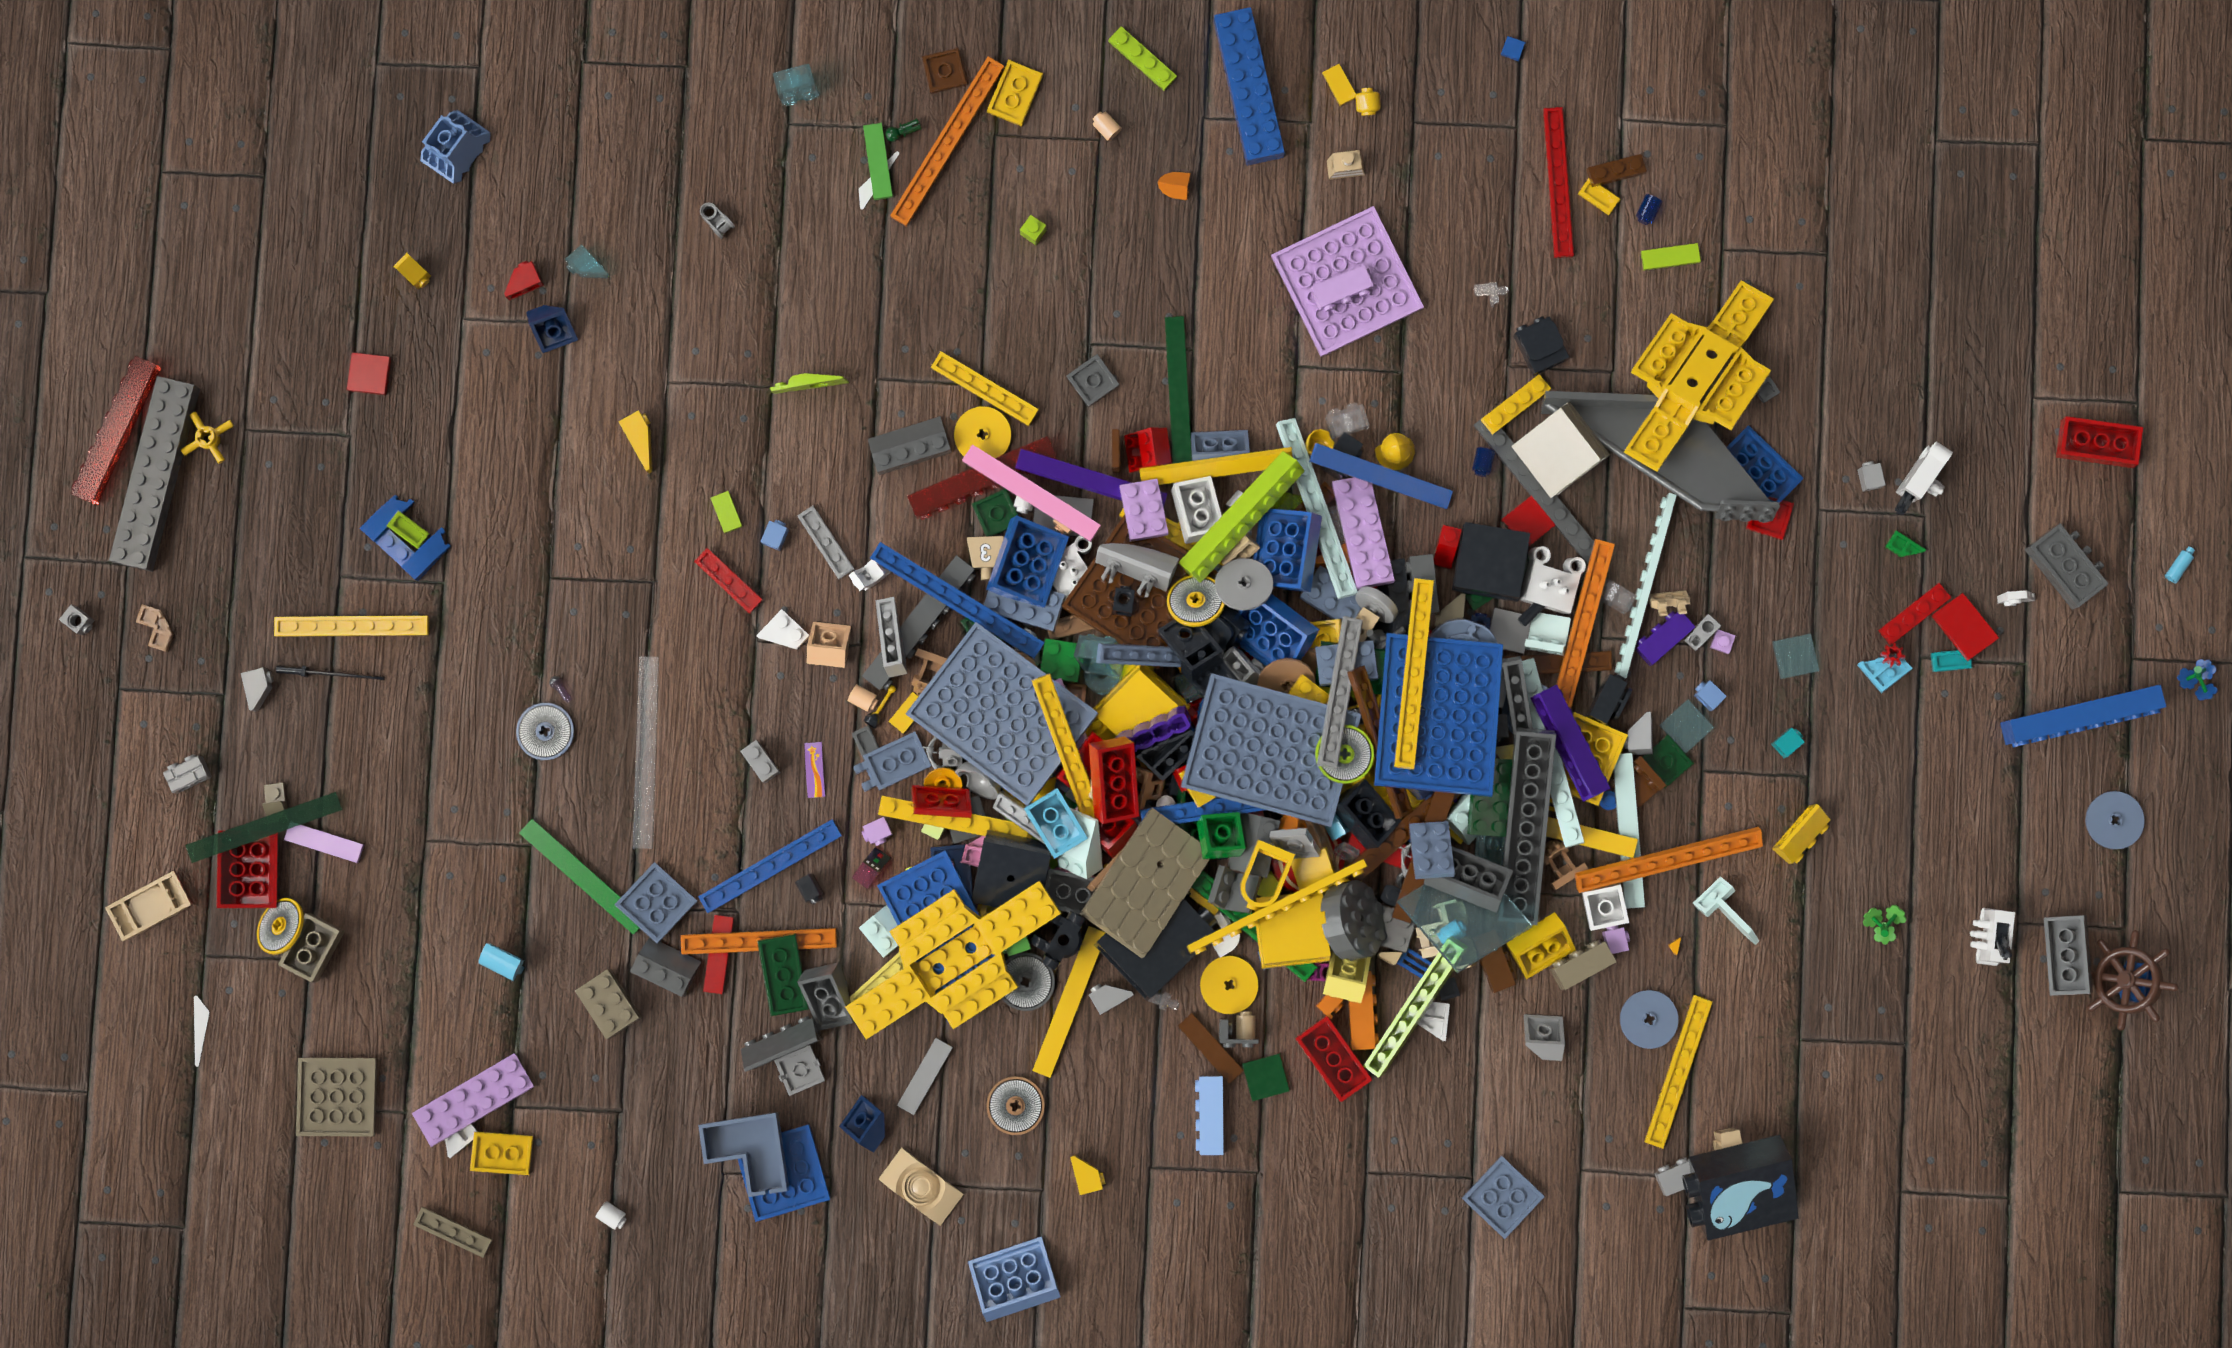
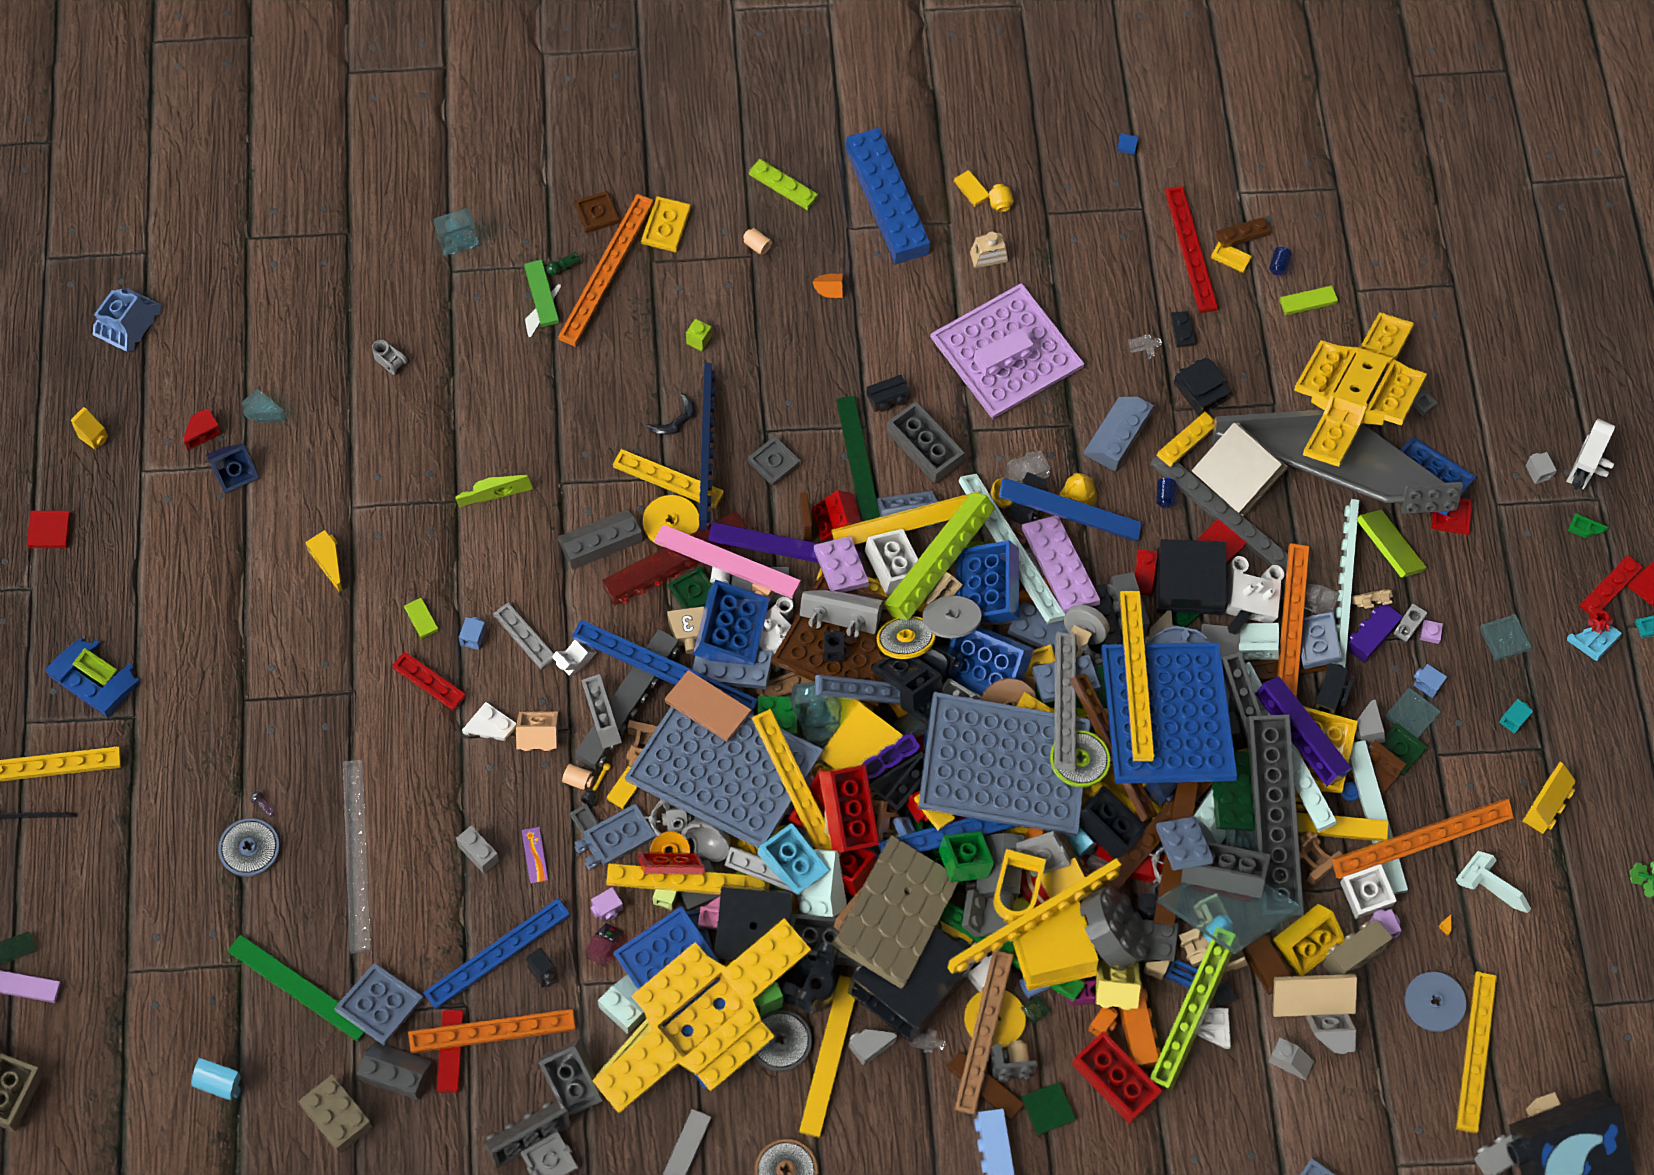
camera: 15 degrees left, 20 degrees down
(781, 972) = (519, 1060): dark green tile -> none
(993, 651) = (708, 706): none -> nougat tile
(994, 331) = (672, 427): none -> black piece
(1027, 352) = (706, 451): none -> dark blue plate
(1168, 794) = (903, 825): none -> medium blue tile
(1215, 1002) = (983, 1032): none -> medium nougat tile
(1218, 318) = (888, 393): none -> black brick
(1247, 379) = (925, 442): none -> dark grey brick
(1268, 982) = (1035, 1010): none -> clear green tile
(1446, 386) = (1119, 431): none -> sand blue slope
(1501, 1059) = (1291, 1058): none -> light grey slope
(1533, 275) = (1182, 329): none -> black plate
(1533, 1003) = (1314, 995): none -> tan tile
(1608, 642) = (1320, 641): none -> sand blue tile
(1700, 545) = (1391, 543): none -> lime tile

